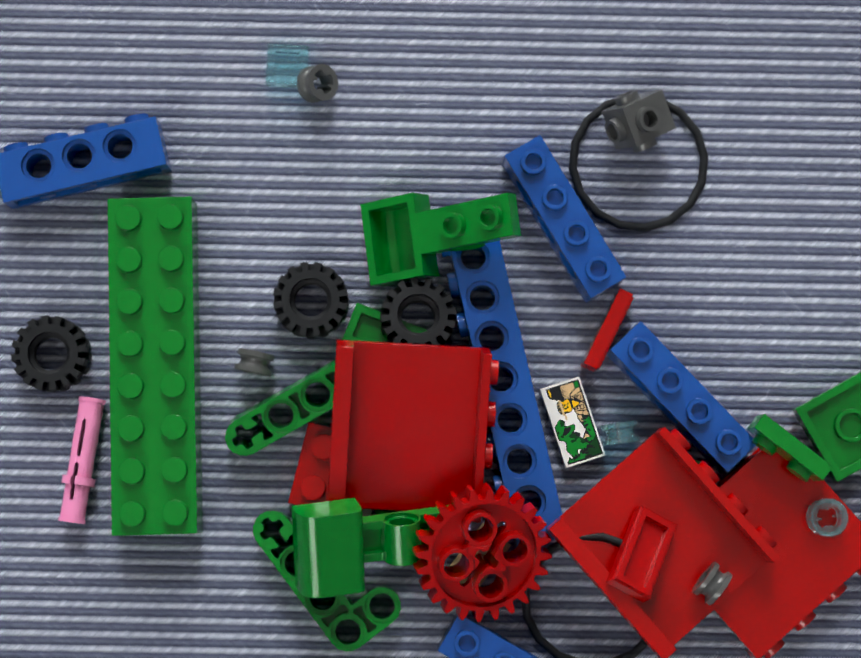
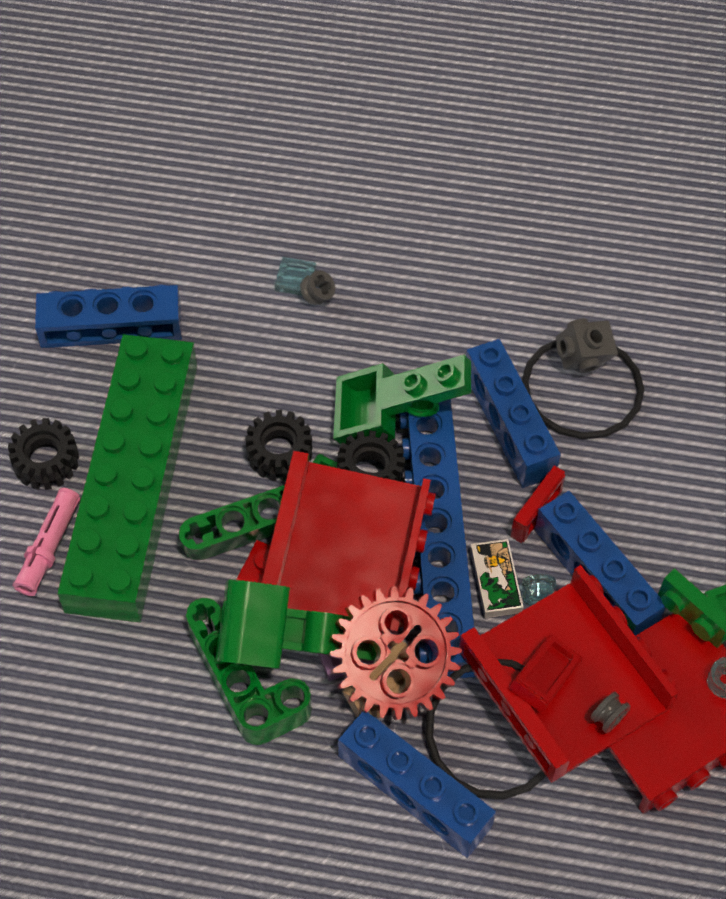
camera: 15 degrees right, 25 degrees down
(254, 362) = (219, 485): dark grey bush -> none

